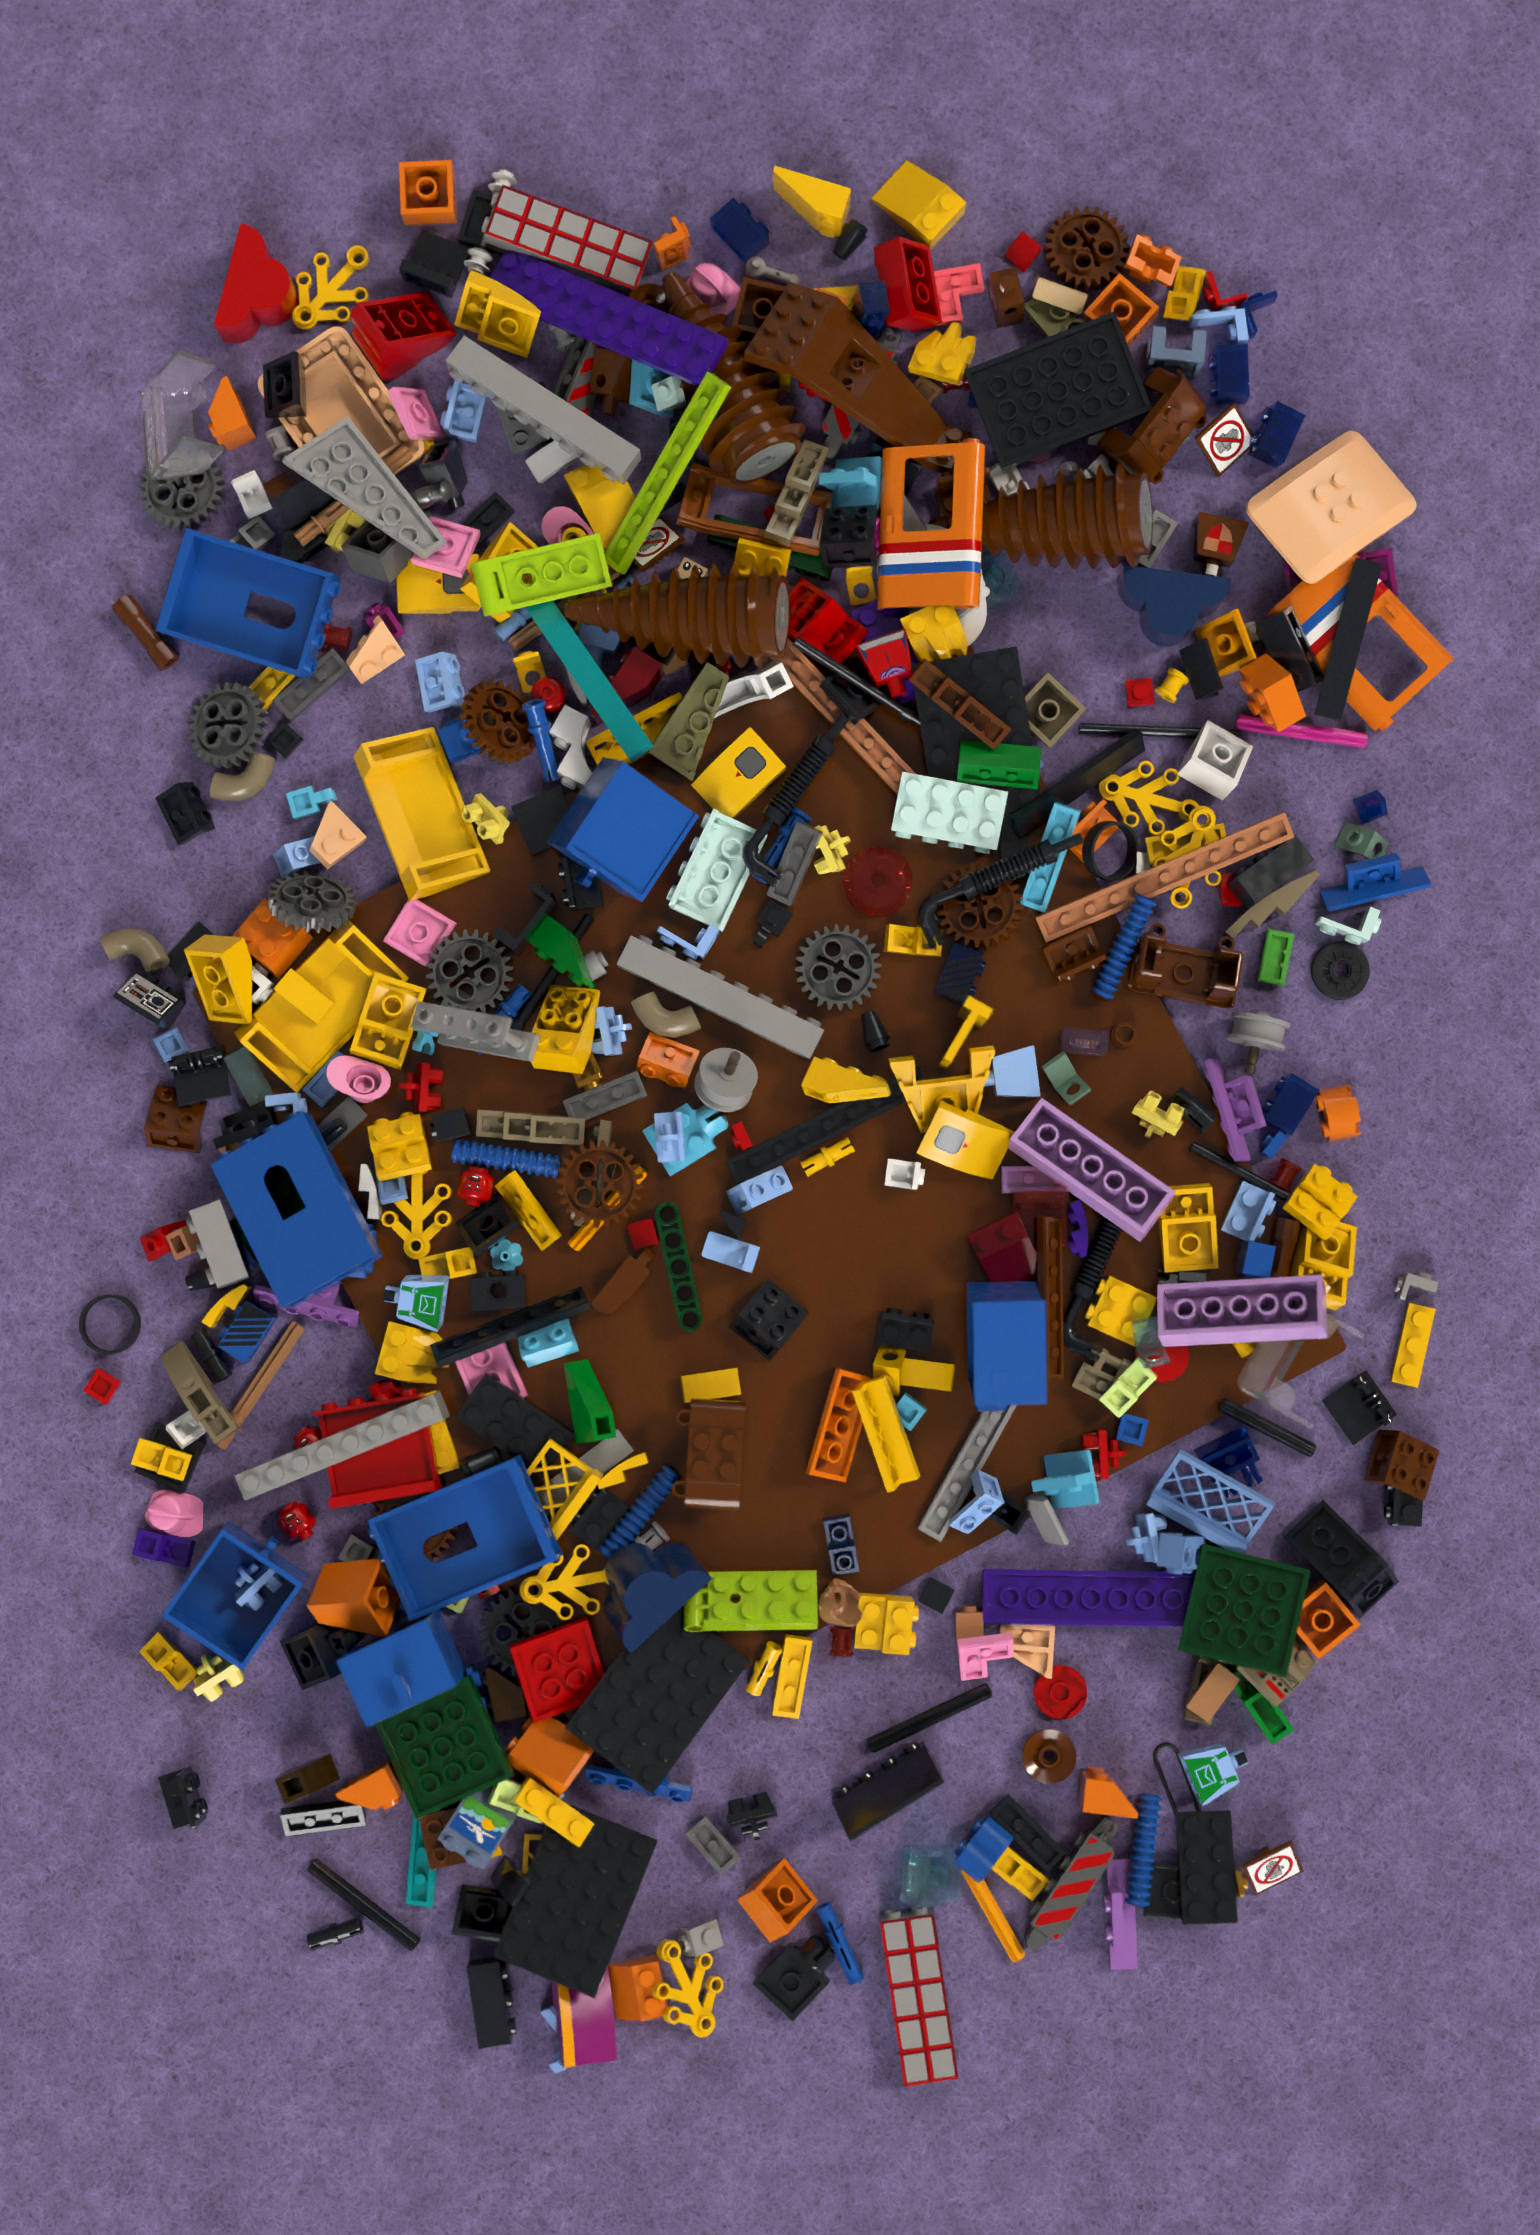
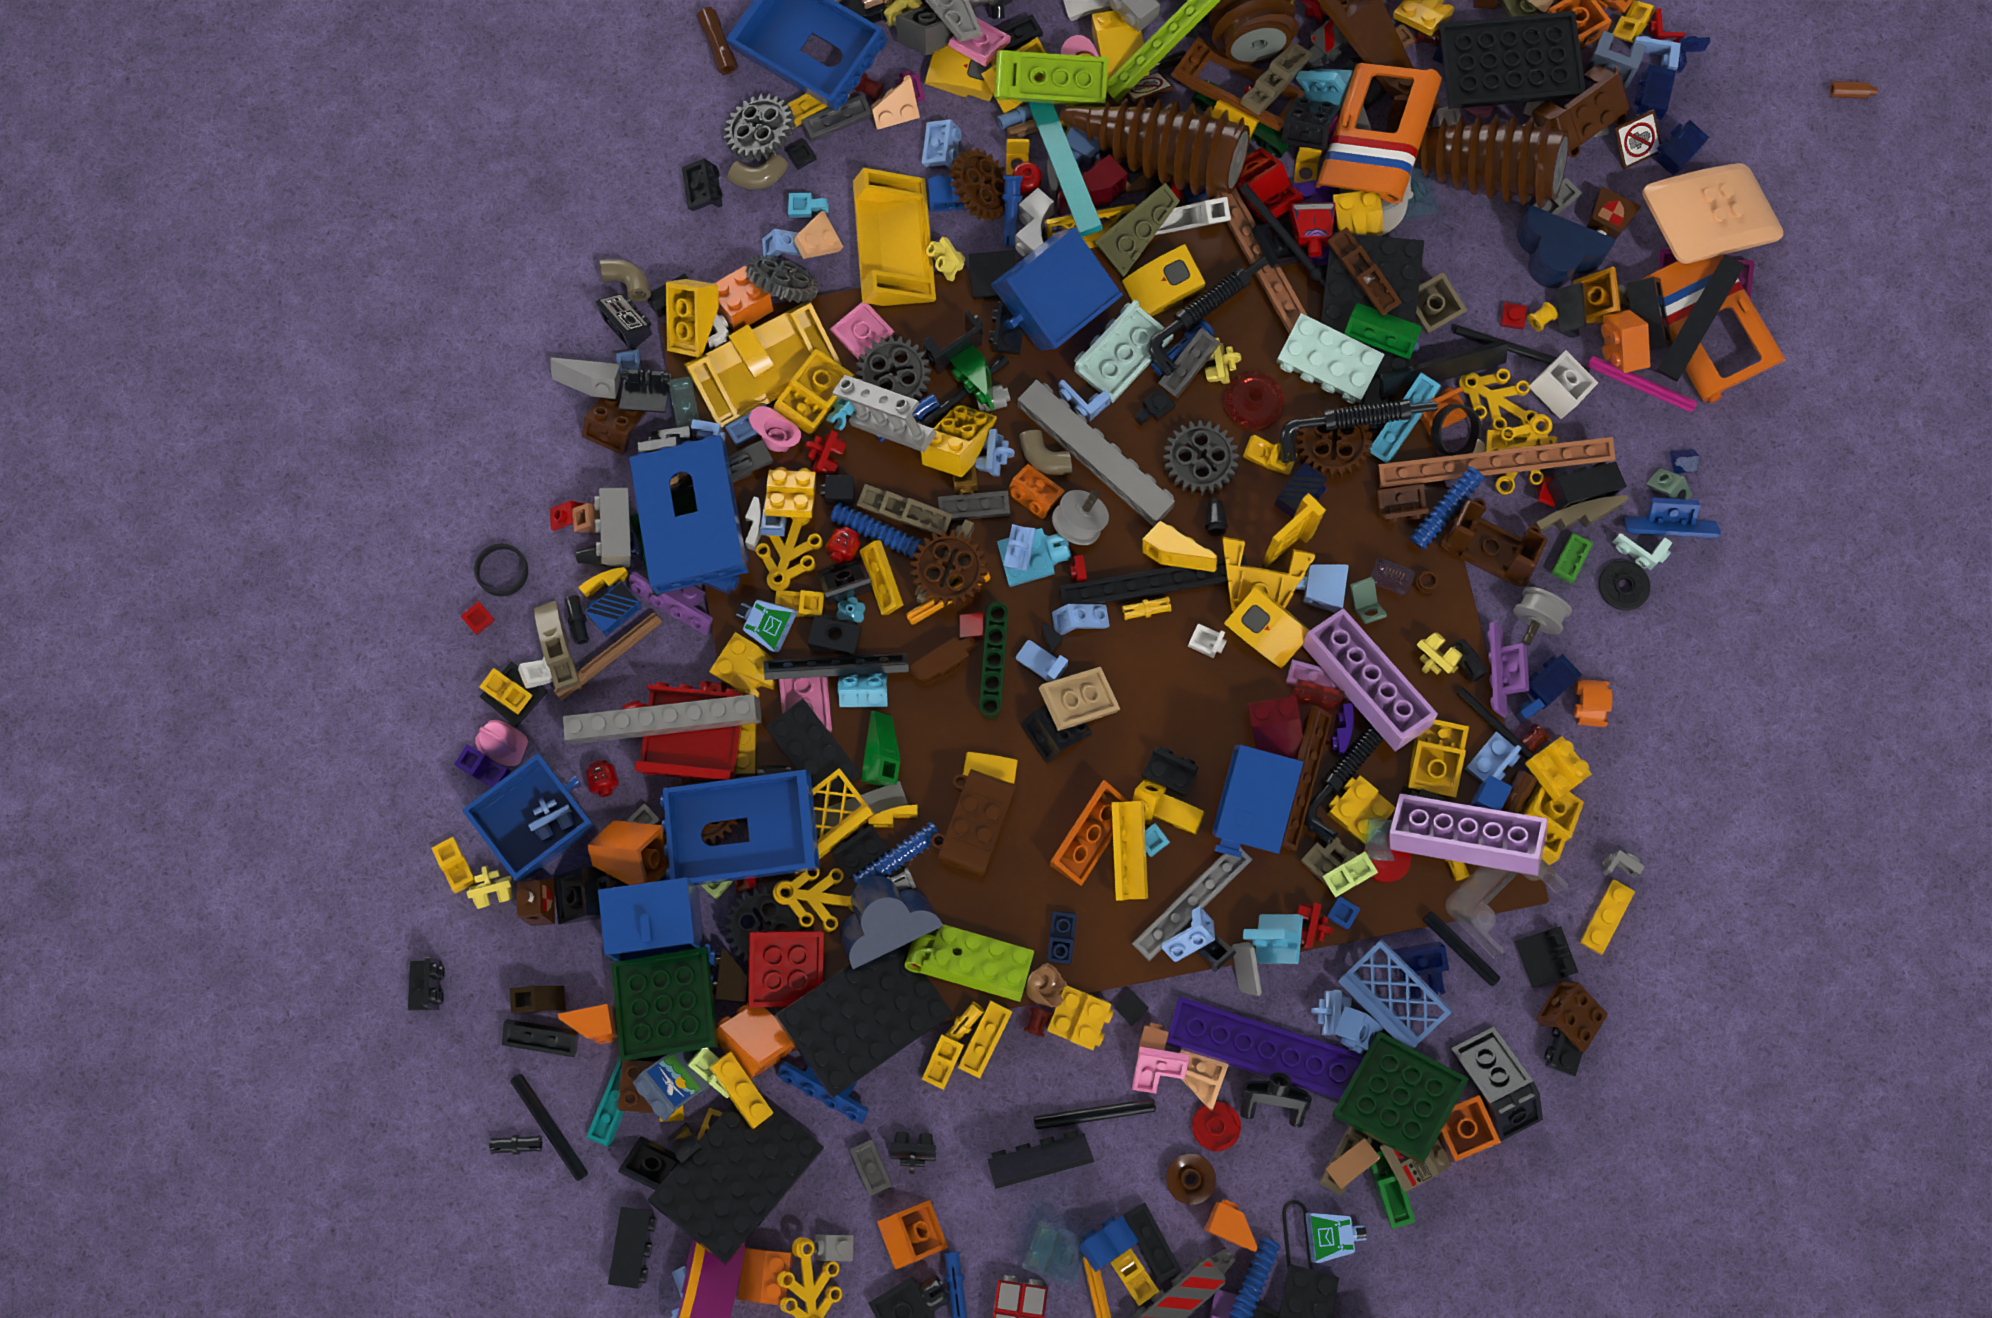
camera: 10 degrees right, 10 degrees down
(136, 1077) = (589, 377): none -> light grey slope
(270, 1674) = (536, 901): none -> reddish brown torso
(754, 1714) = (942, 1062): none -> yellow slope
(784, 1283) = (1079, 698): none -> tan plate
(1112, 1643) = (1276, 1092): none -> black connector
(1453, 303) = (1855, 90): none -> dark orange cylinder

